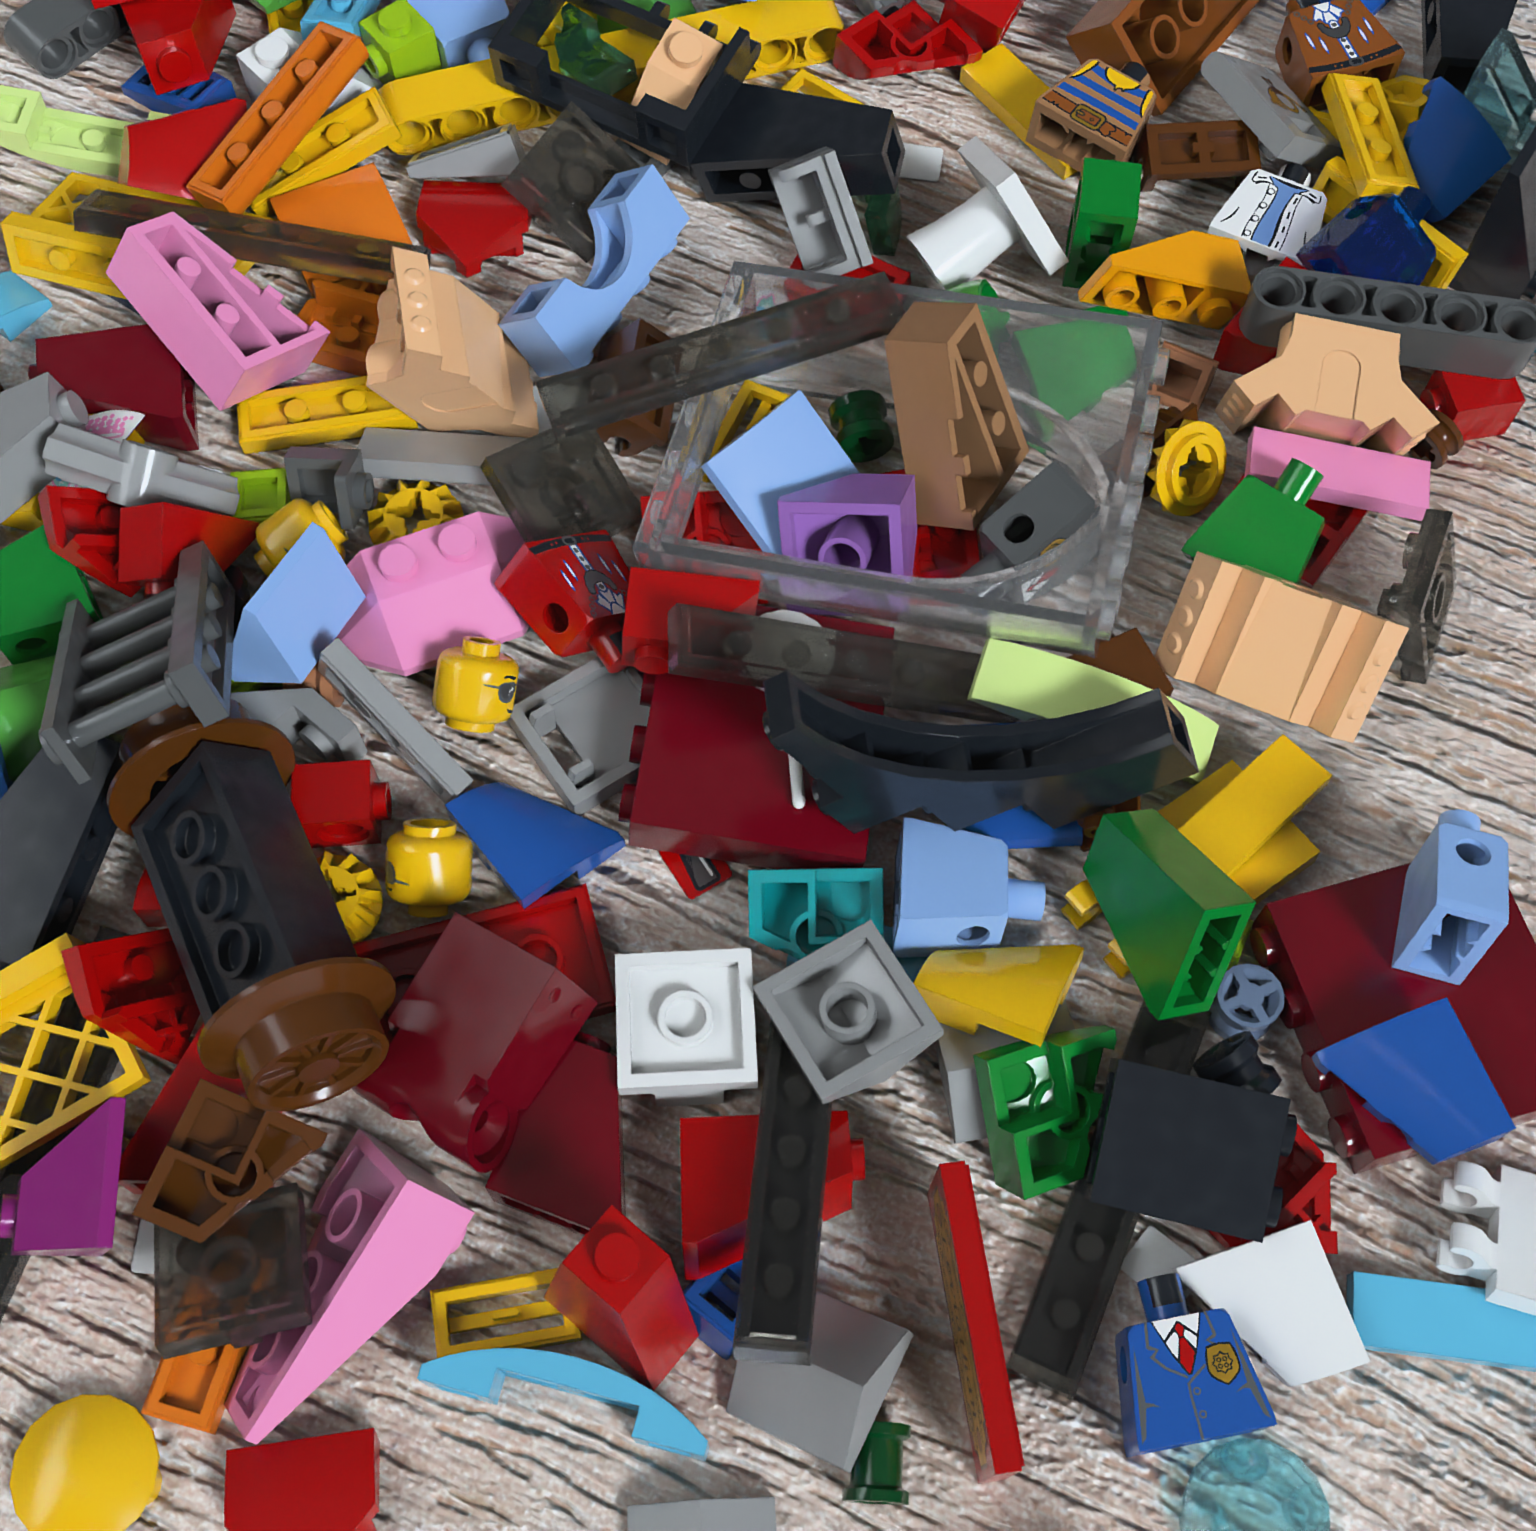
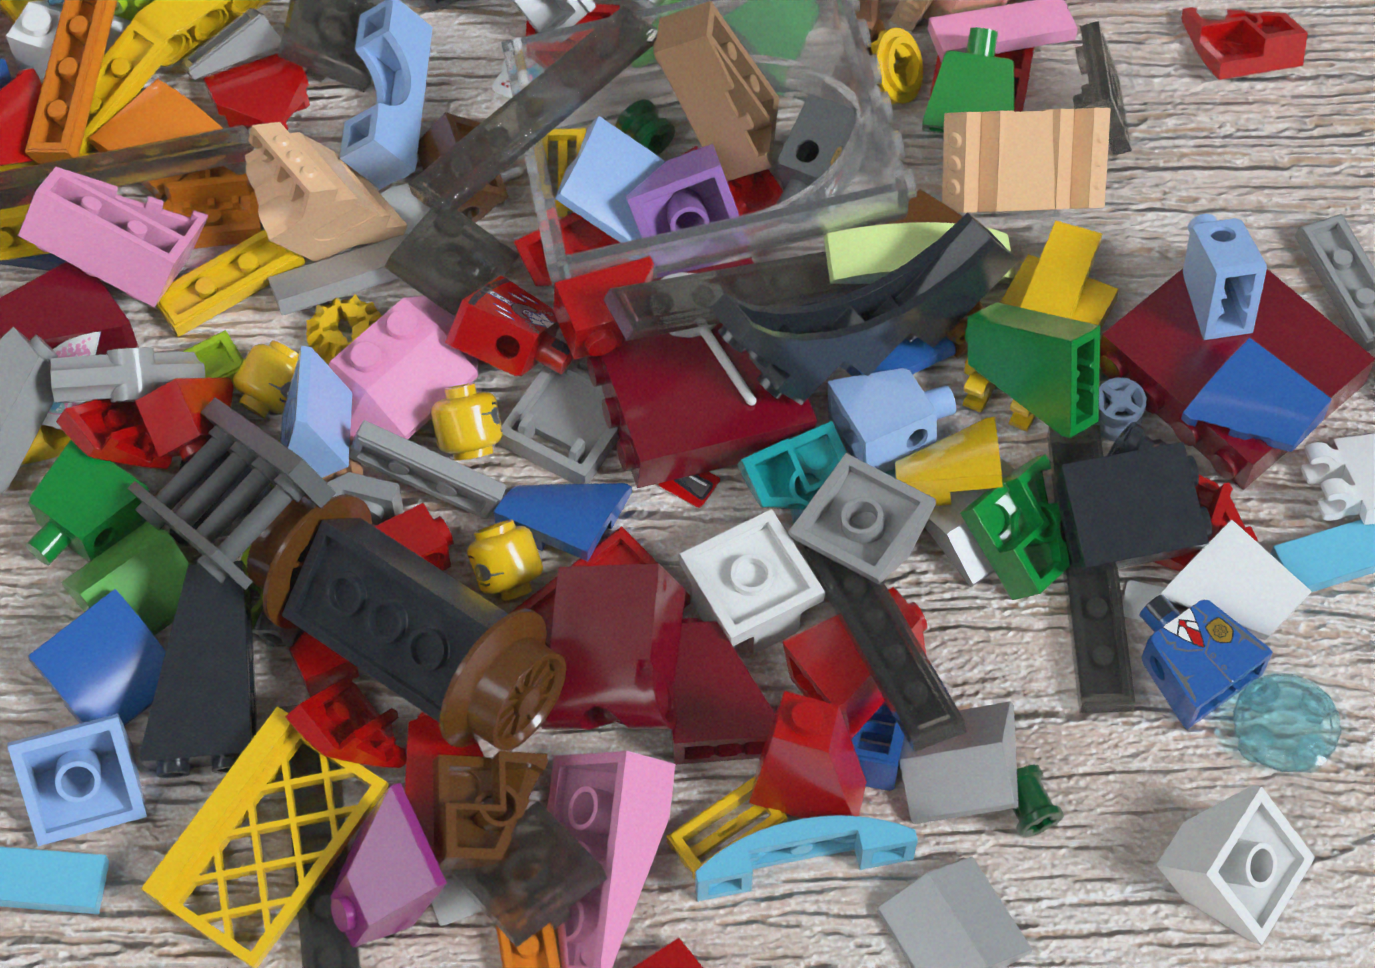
camera: 25 degrees left, 5 degrees down
(333, 477) = (267, 321): dark grey bracket -> none
(974, 1325) = (1049, 680): red tile -> none

